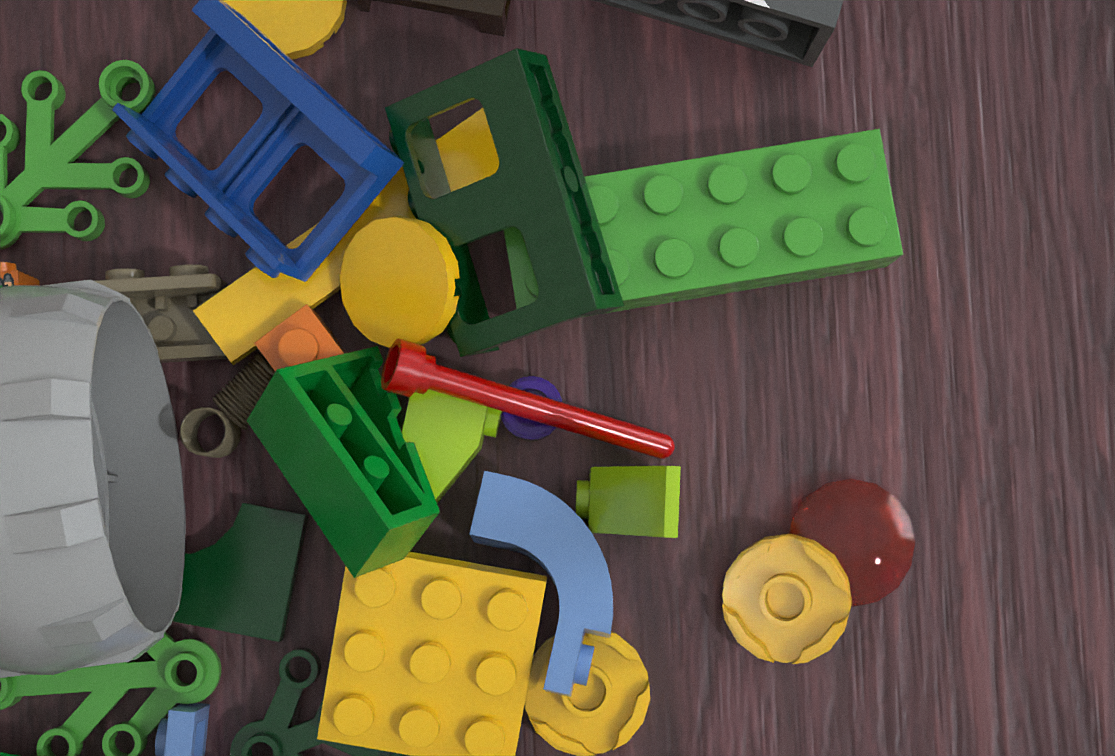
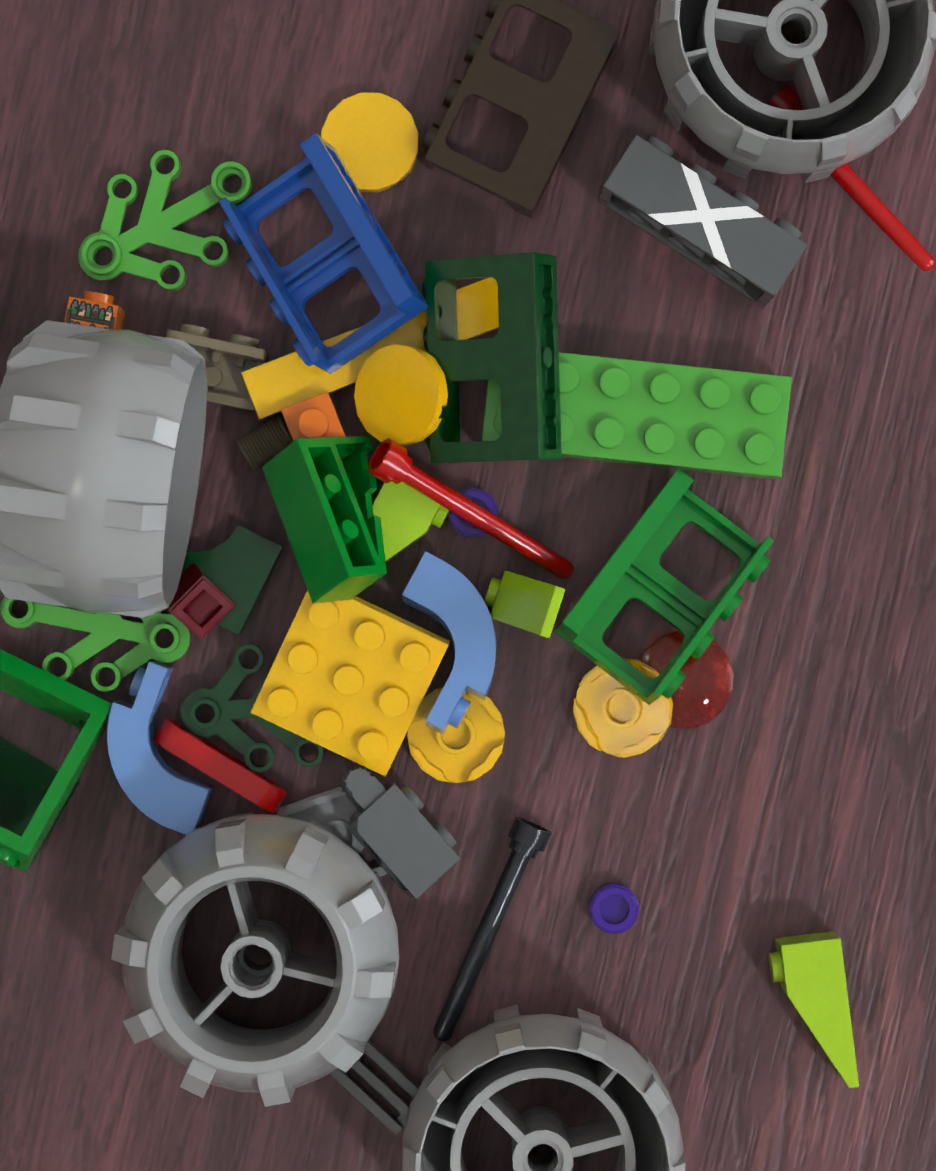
camera: 20 degrees right, 5 degrees up
(189, 432) = (212, 461): dark tan piece -> none
(215, 614) = (199, 602): none -> dark red slope
(756, 427) = (637, 574): none -> green window

